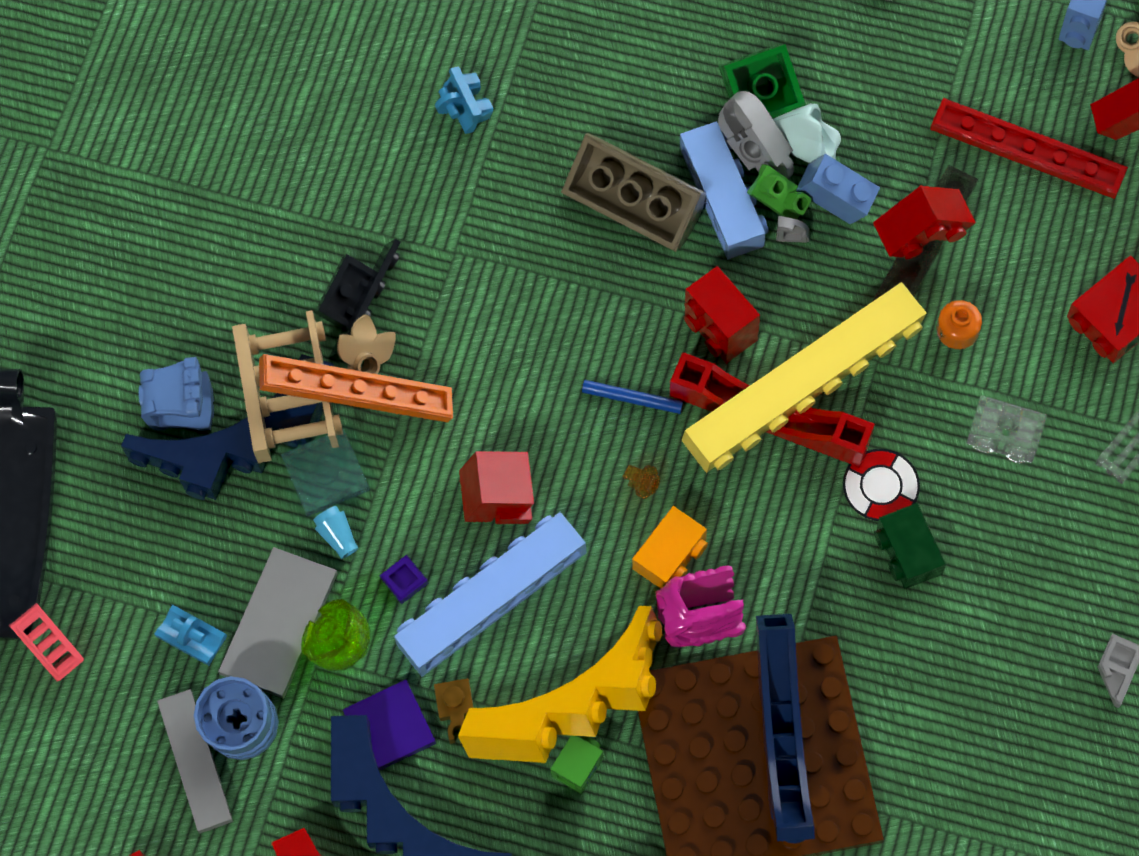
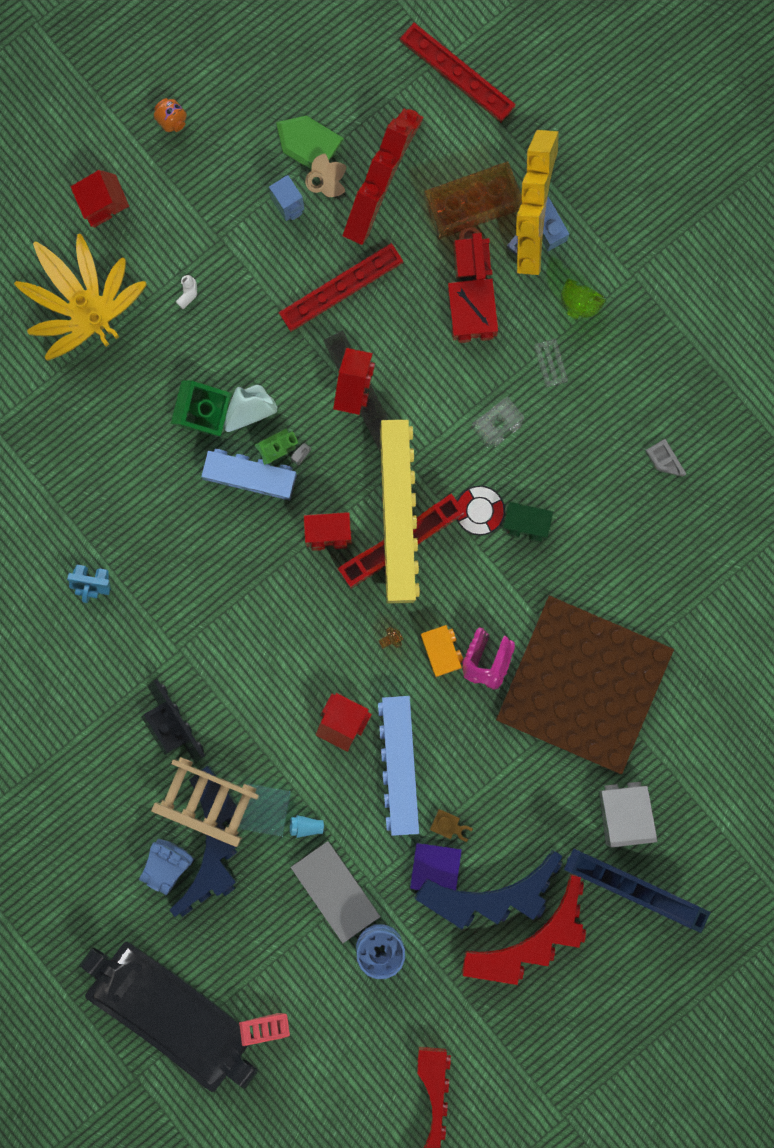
camera: 60 degrees left, 15 degrees up
(190, 635) = (313, 946): dark azure hips -> none
(194, 763) = (388, 989): light grey tile -> none
(337, 637) = (369, 867): clear neon green cylinder -> none
(355, 388) = (235, 765): orange tile -> none
(365, 345) = (208, 741): tan plate -> none
(404, 579) = (357, 806): dark purple tile -> none
(531, 727) = (501, 763): yellow arch -> none
(577, 762) = (526, 781): bright green brick -> none
(632, 396) = (336, 610): blue bar -> none
(634, 192) = (218, 527): dark tan brick -> none
(755, 134) = (233, 435): light grey piece -> none
(782, 729) = (592, 666): dark blue arch -> none
(838, 189) = (296, 412): medium blue brick -> none
(959, 324) = (421, 404): orange head -> none

